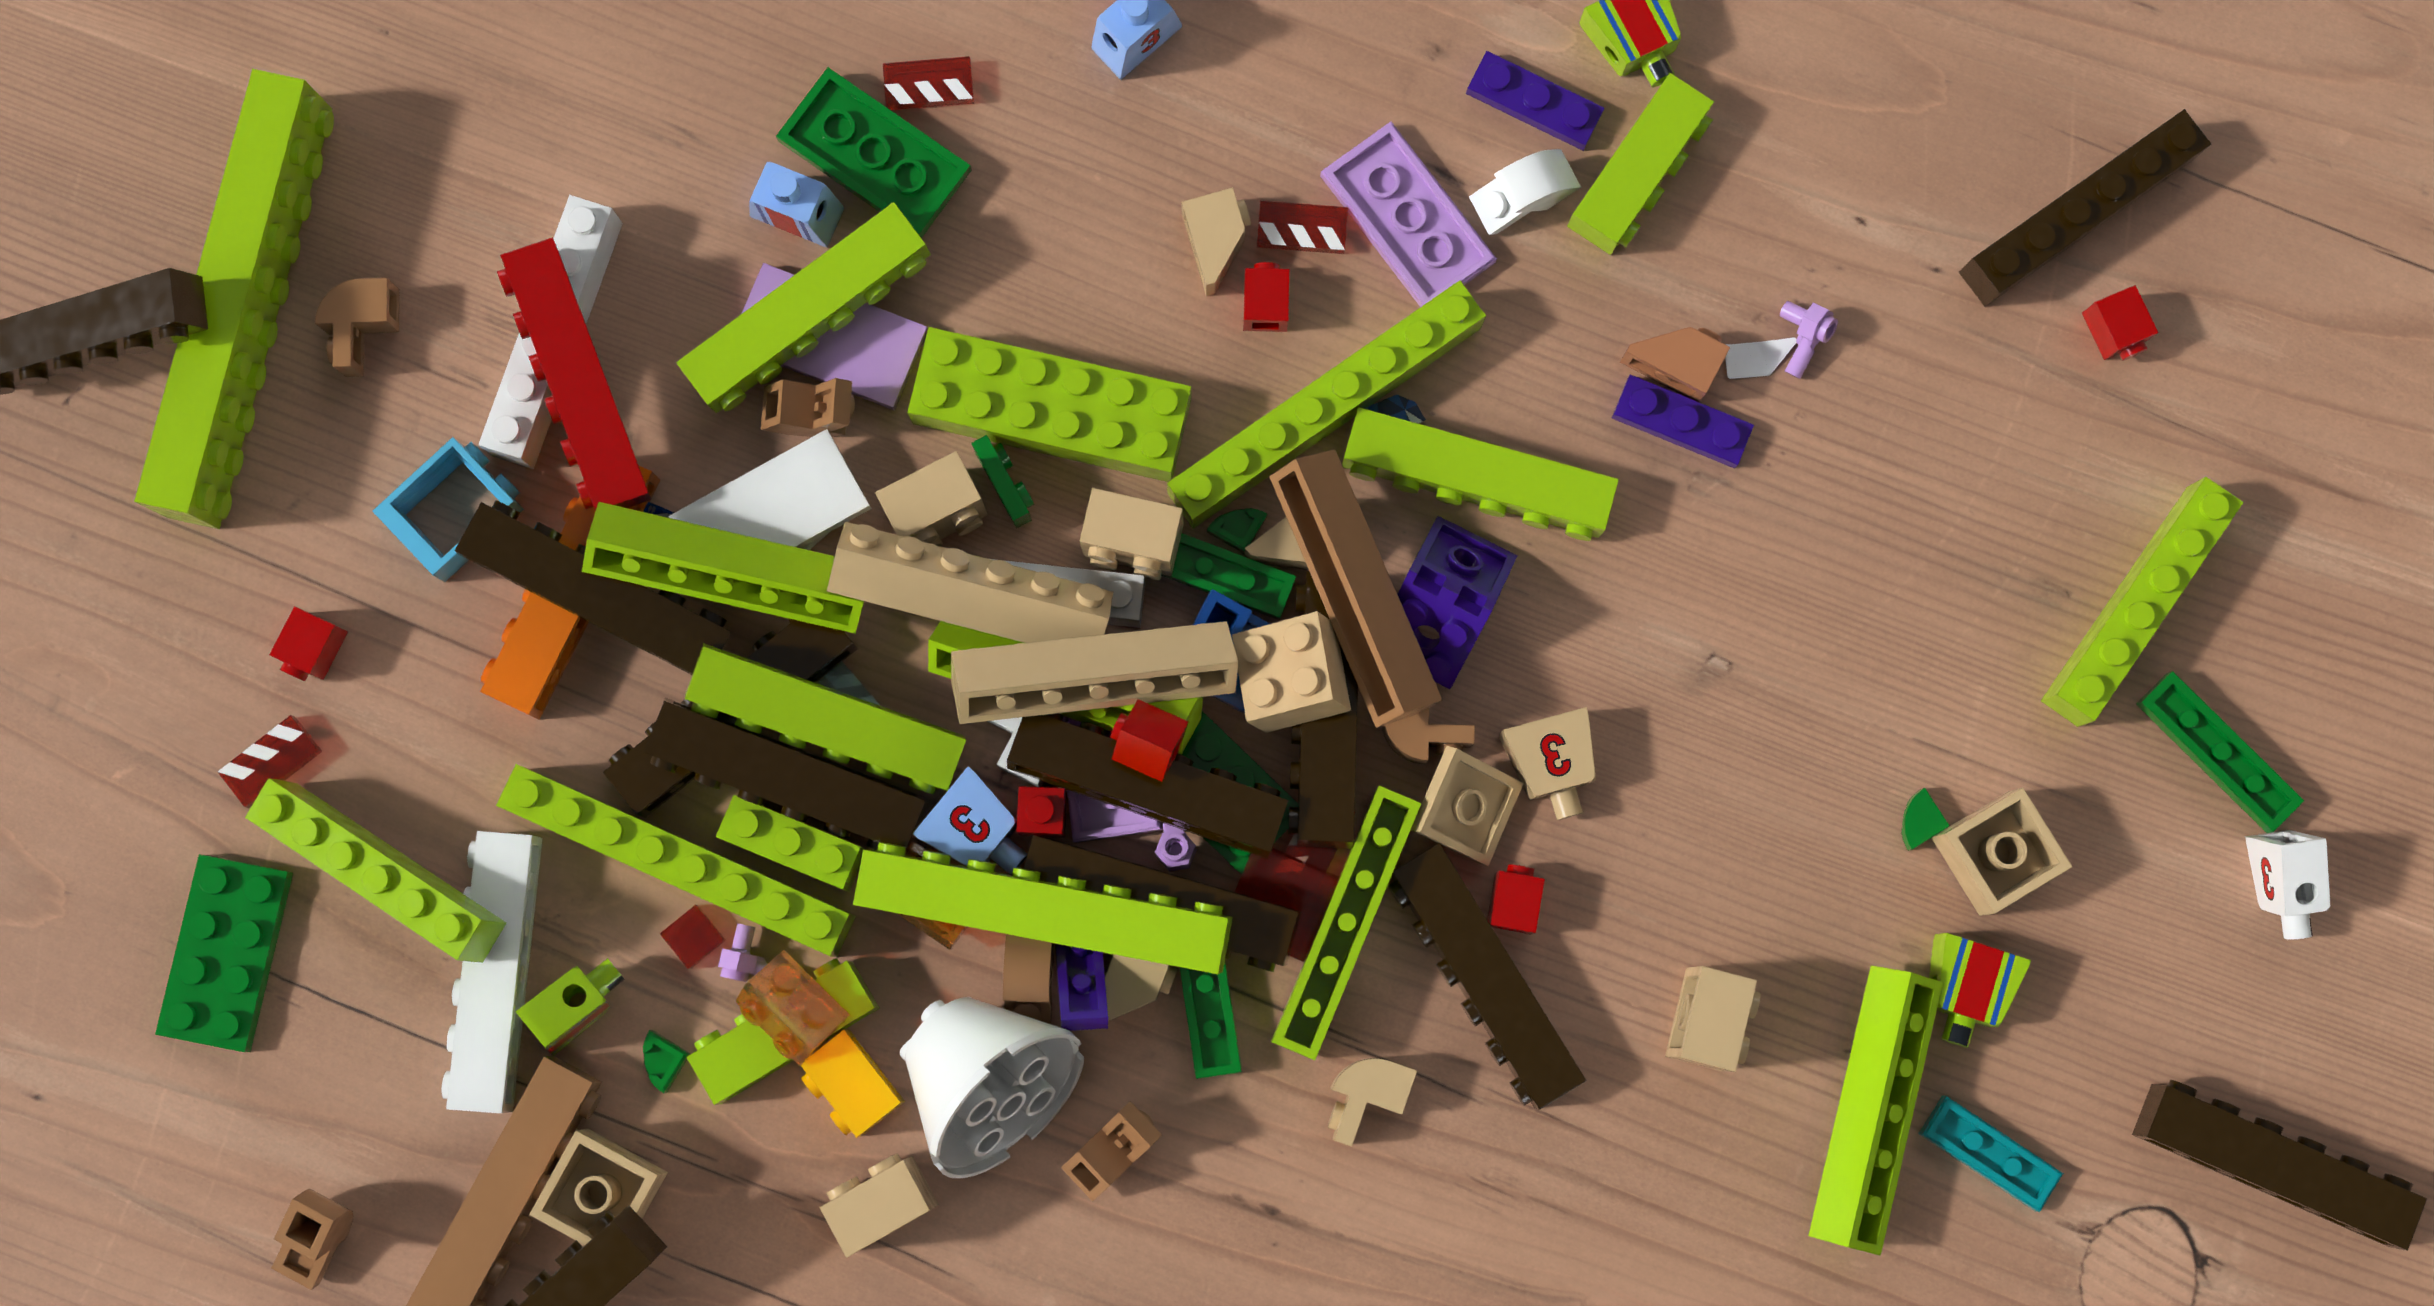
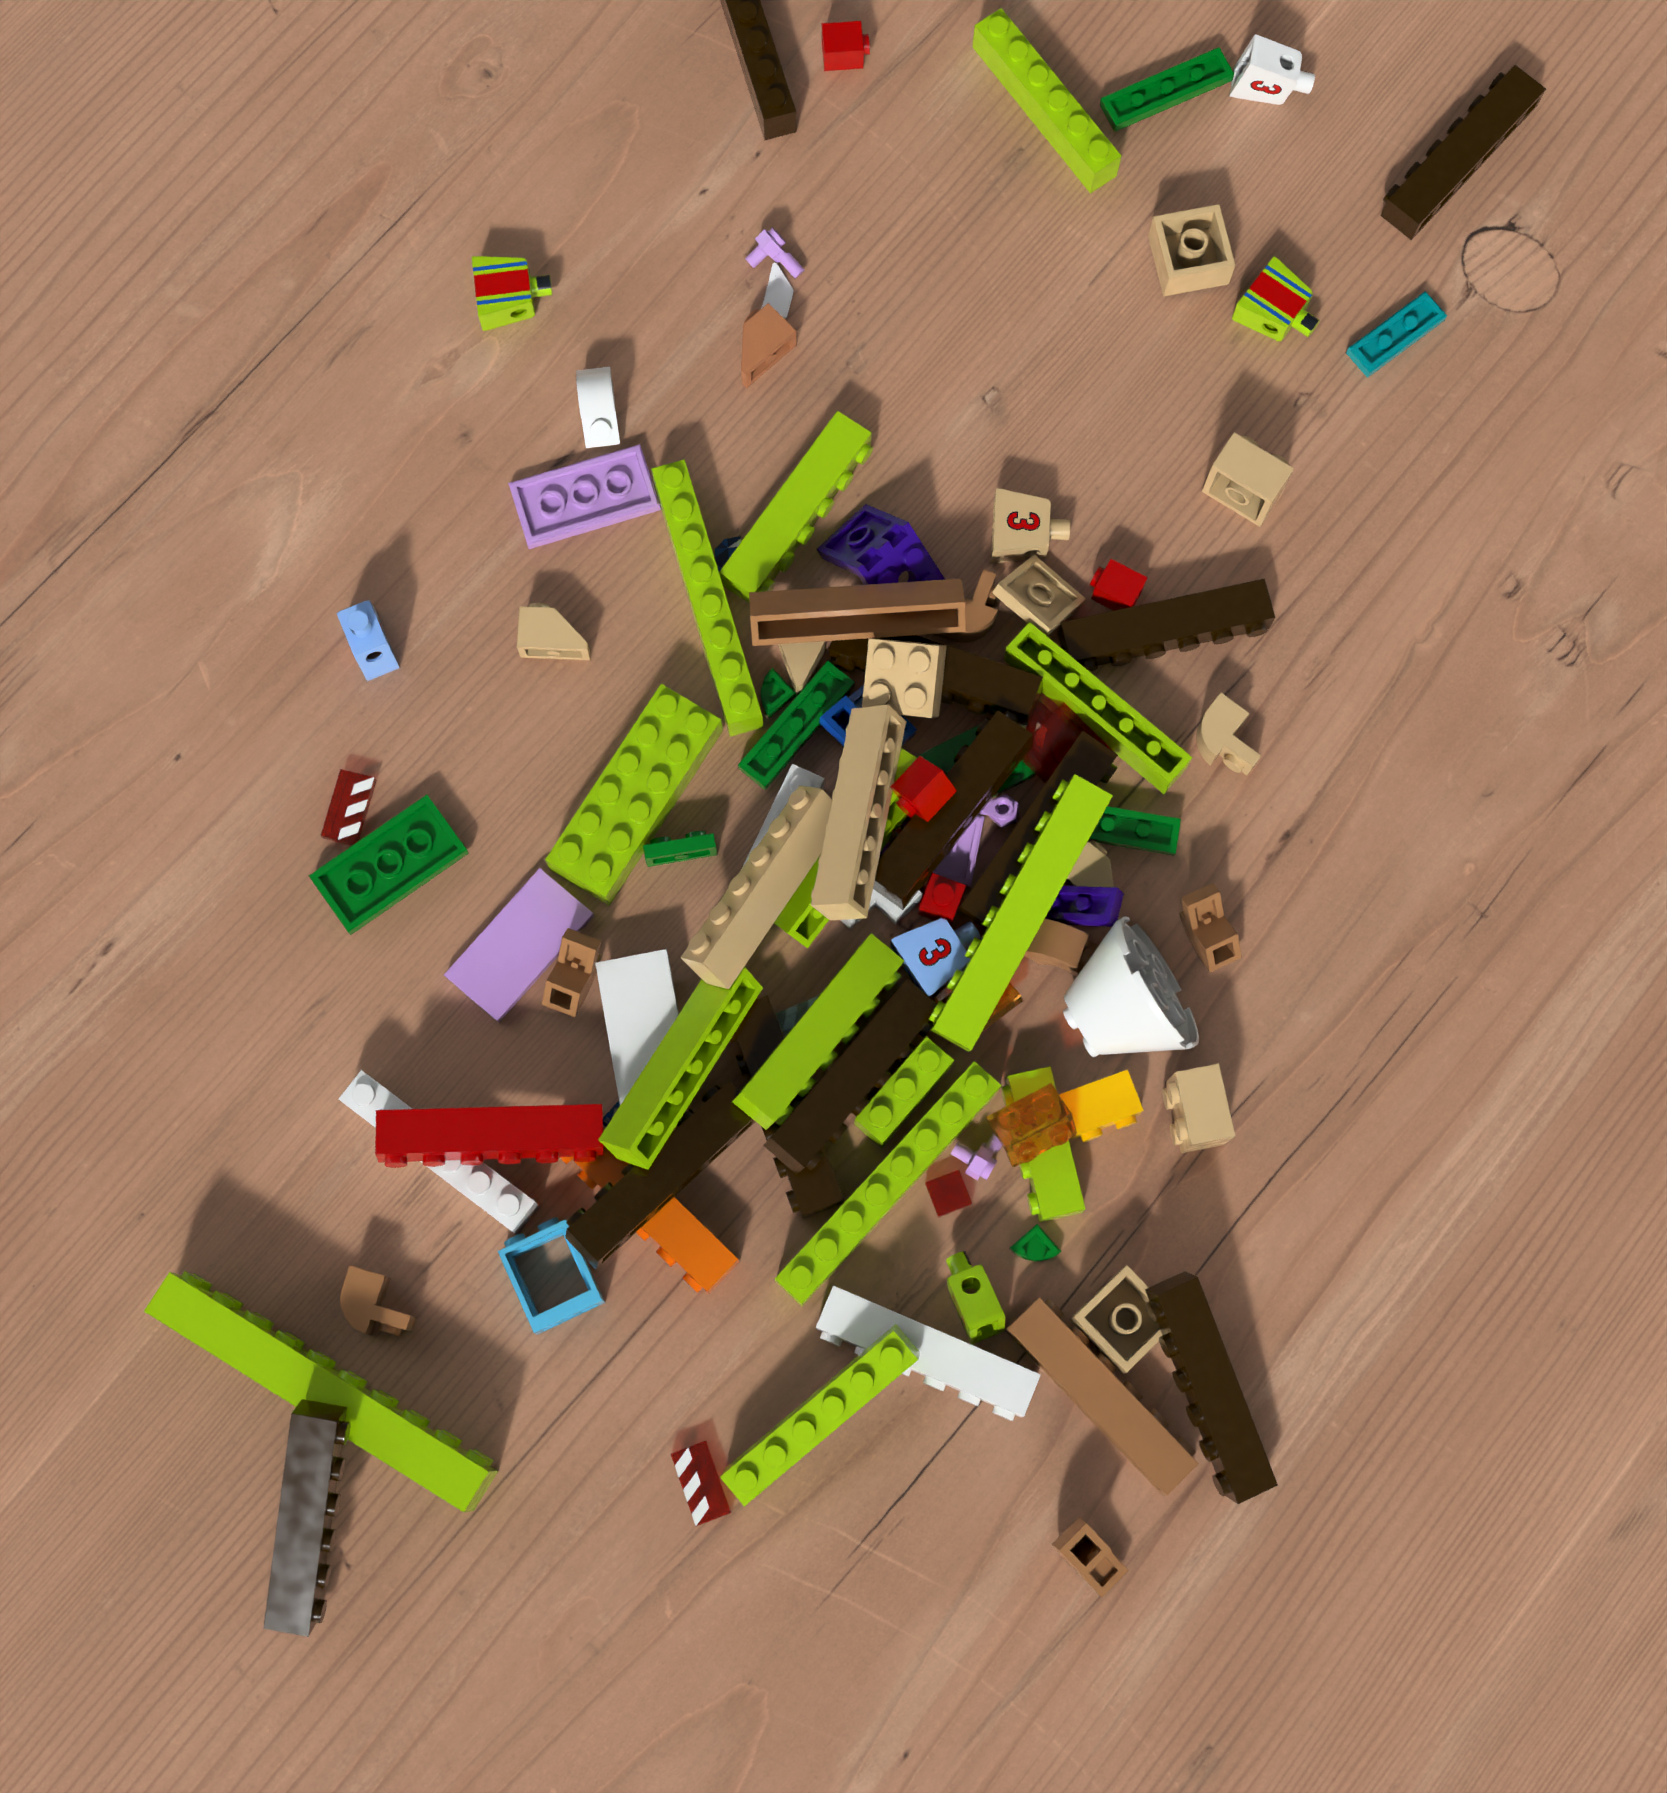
camera: 70 degrees left, 5 degrees down
(224, 953) = (841, 1565): green plate -> none
(307, 645) = (620, 1422): red brick -> none
(792, 202) = (406, 935): light blue torso -> none
(804, 309) = (494, 949): lime brick -> none
(934, 502) = (681, 898): tan brick -> none
(1131, 533) = (759, 758): tan brick -> none
(1266, 298) = (610, 613): red brick -> none
(1302, 227) = (564, 573): clear red tile -> none
(1534, 100) = (530, 379): dark purple plate -> none
(1640, 164) = (608, 321): lime brick -> none
(1682, 421) = (806, 359): dark purple plate -> none
(1875, 1109) = (1344, 394): lime brick -> none
(1921, 820) = (1149, 298): green tile -> none

